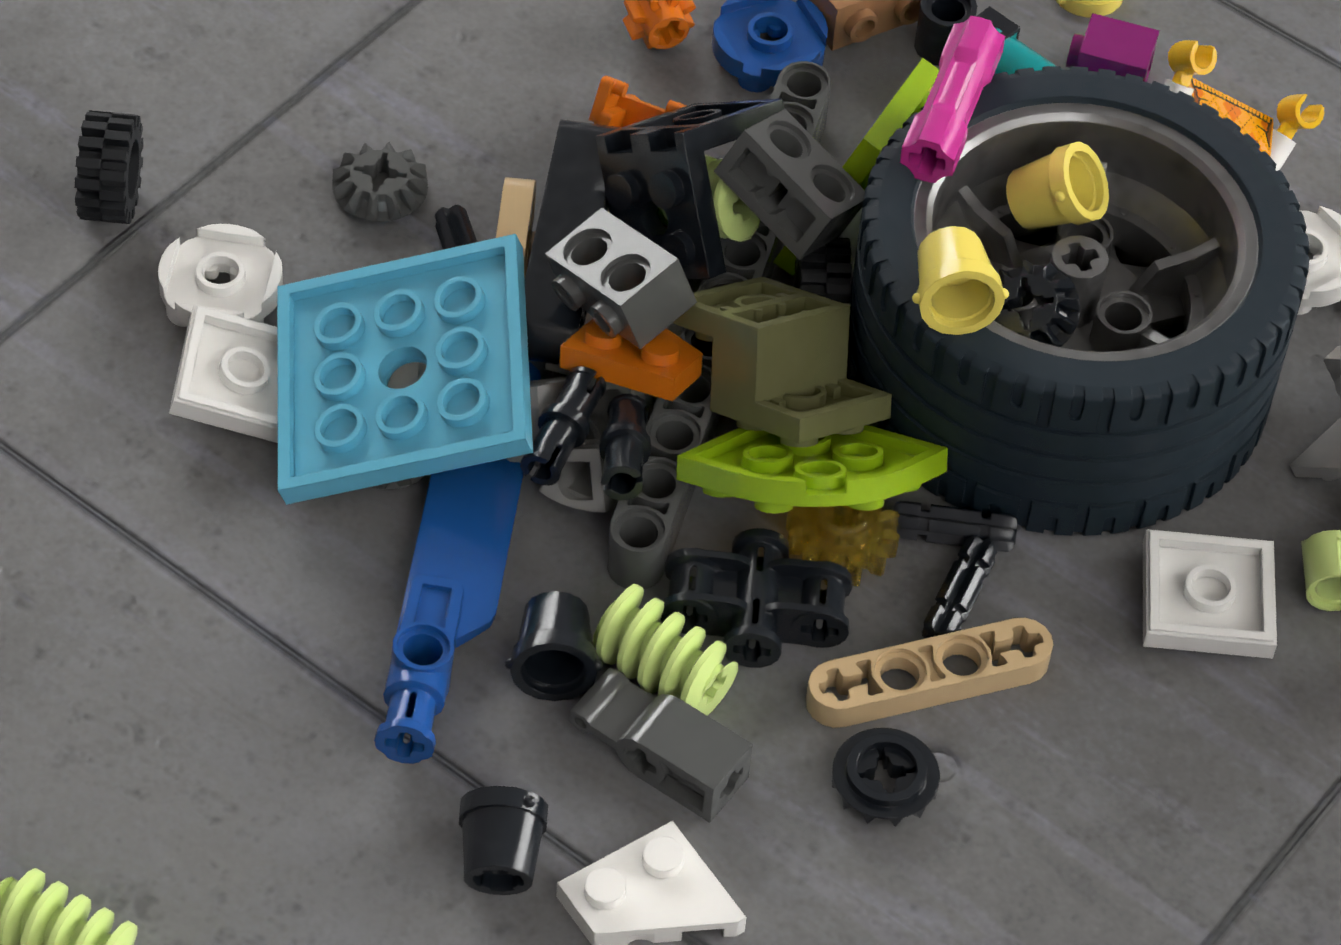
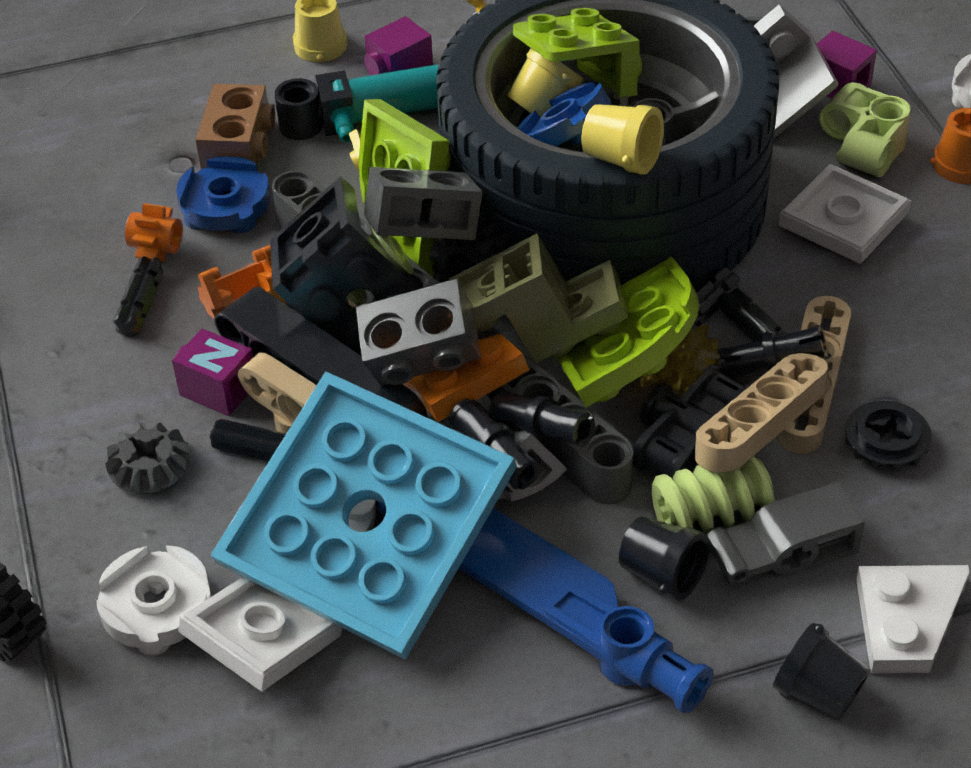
camera: 50 degrees left, 5 degrees down
(514, 152) = (209, 371): none -> magenta brick
(576, 54) = (138, 296): none -> black axle
(789, 622) = (770, 406): none -> tan beam
(909, 614) = (770, 350): none -> black pin
(941, 127) = (482, 87): dark pink axle -> none
(1007, 231) = (566, 116): none -> blue plate
(1124, 178) = (599, 45): none -> lime bracket

